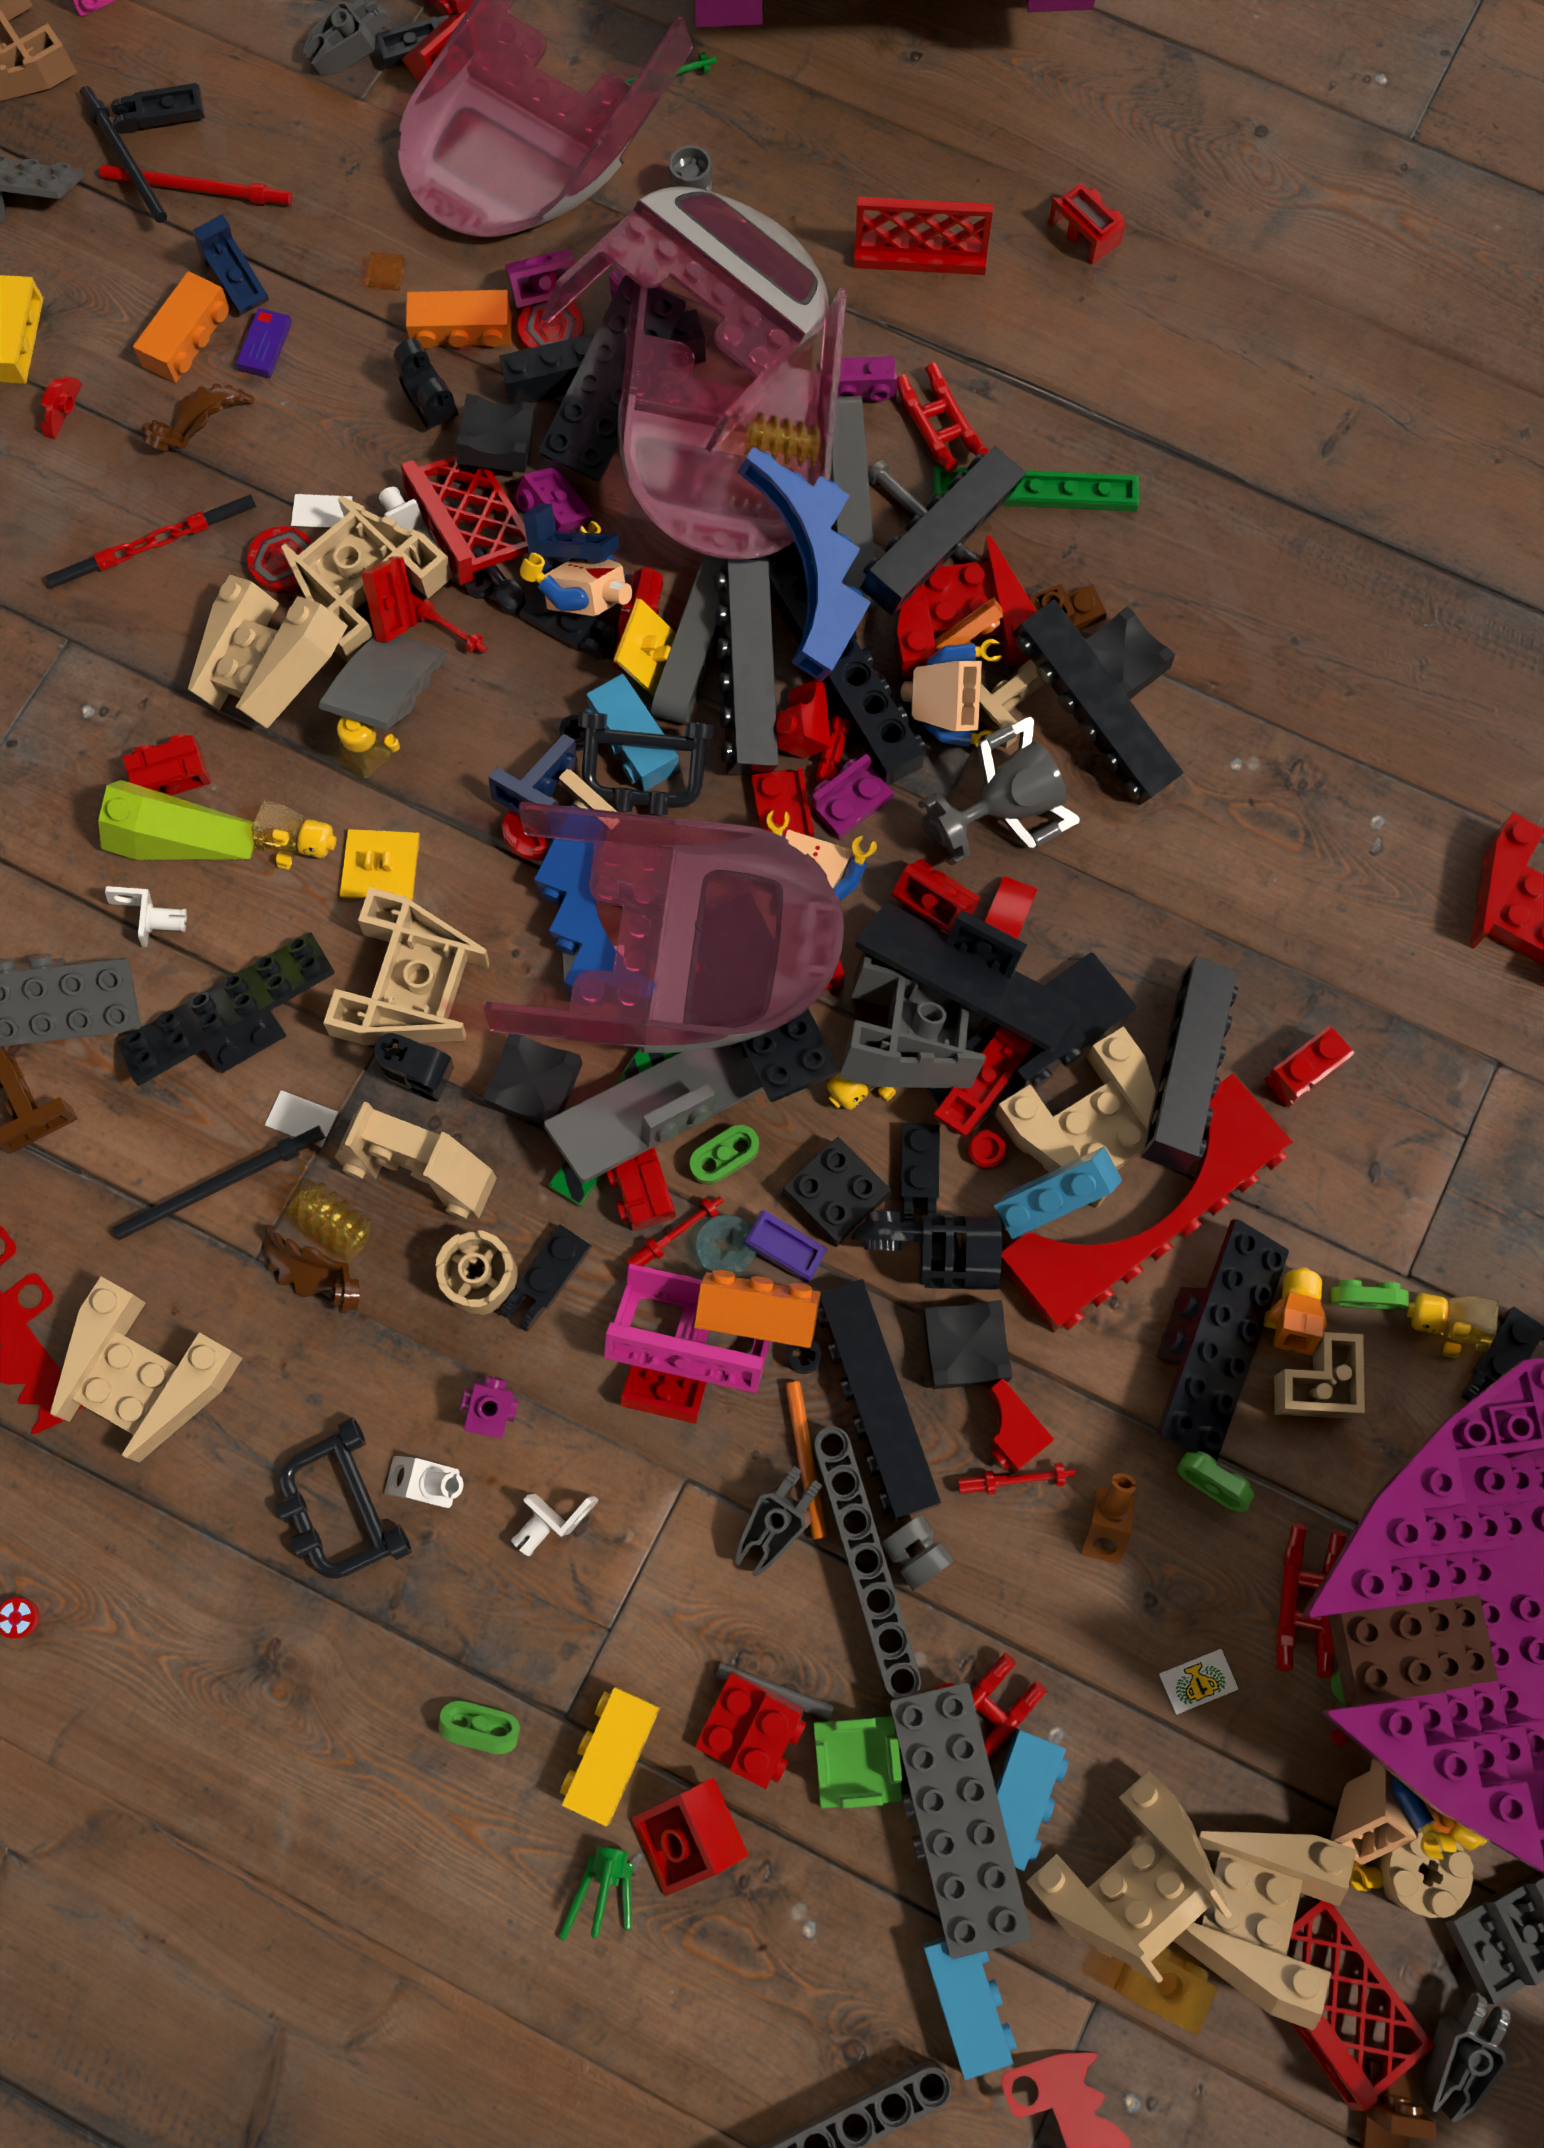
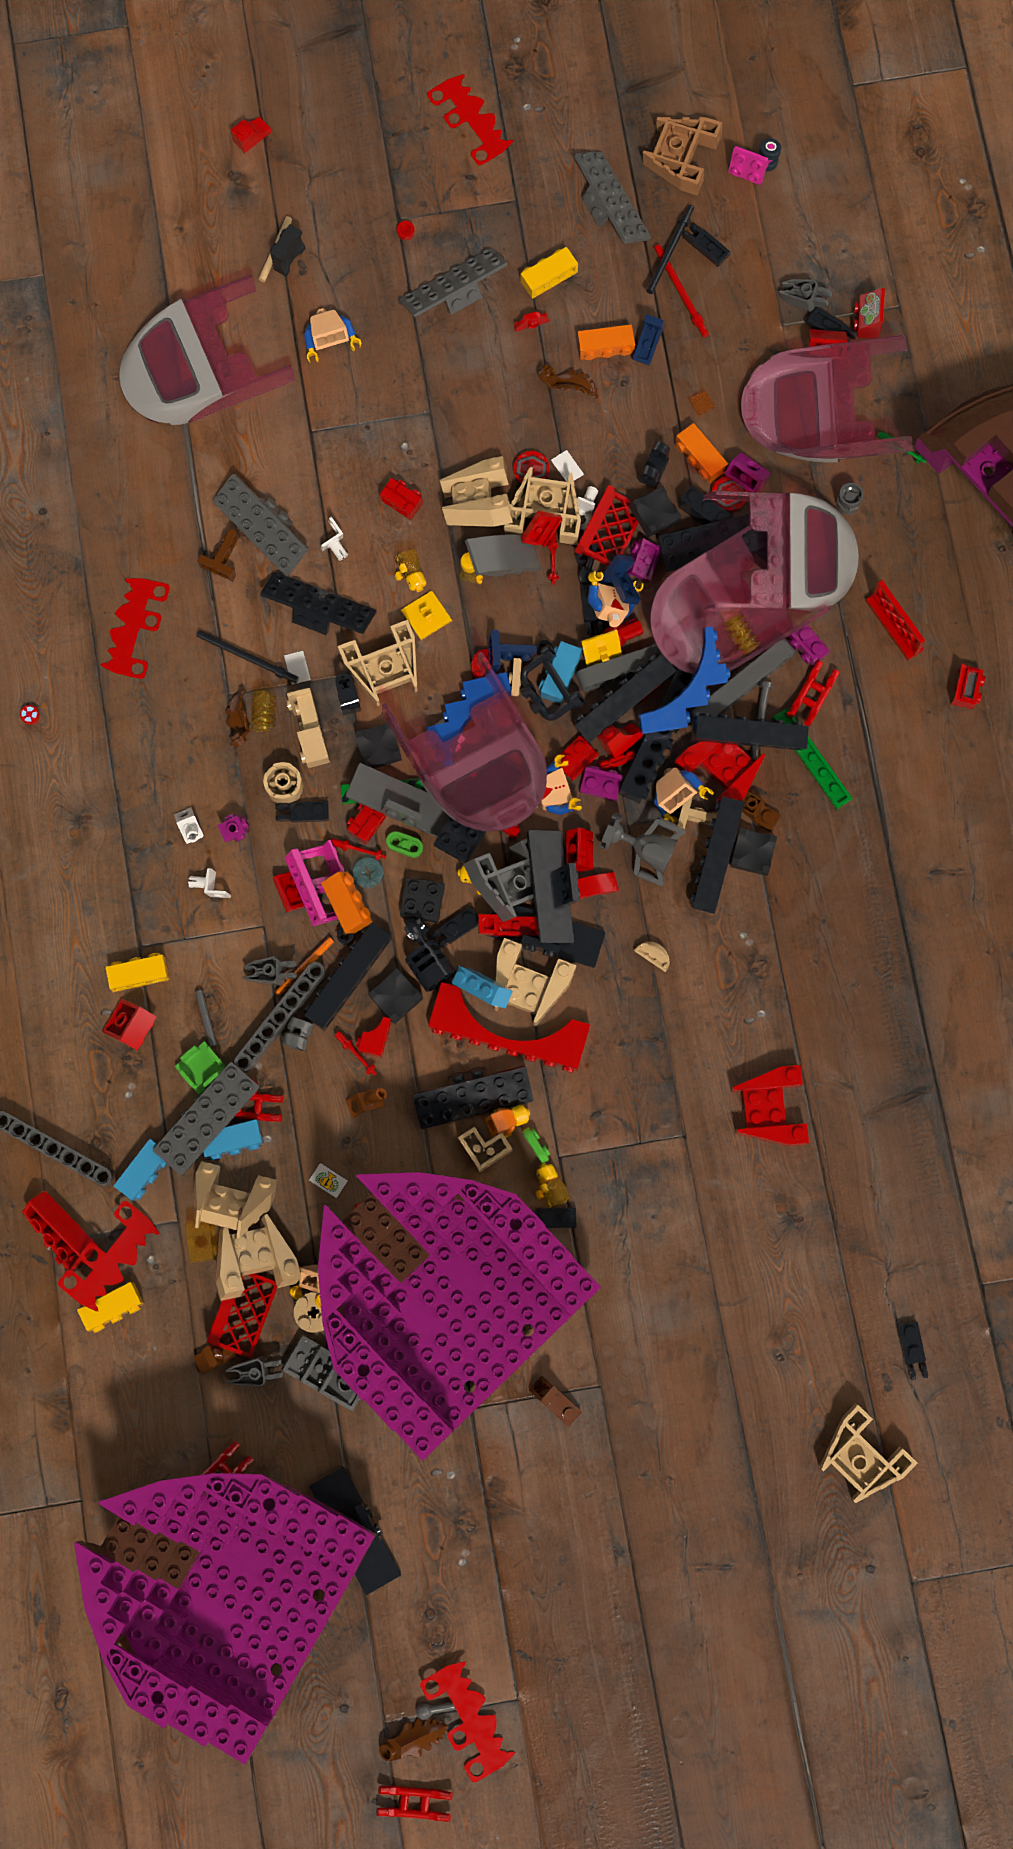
camera: 55 degrees right, 5 degrees up
(107, 559) = (520, 421): piece -> none
(131, 1382) = (145, 684): tan wedge -> none
(163, 827) = (375, 517): lime wedge -> none
(264, 343) = (627, 380): dark purple tile -> none
(294, 1507) = (134, 800): black bar -> none
(479, 1727) = (112, 916): bright green plate -> none
(608, 1867) = (96, 1002): green plant -> none
(751, 1730) = (184, 1019): red plate -> none
(785, 1246) = (384, 896): dark purple tile -> none
(982, 621) = (717, 778): orange plate -> none
(986, 1150) = (486, 948): red tile -> none
(1177, 906) = (654, 953): none -> tan plate
(1190, 1065) = (579, 1002): black brick -> none
(1226, 1488) = (412, 1124): bright green plate -> none
(1309, 1066) = (619, 1055): red brick -> none

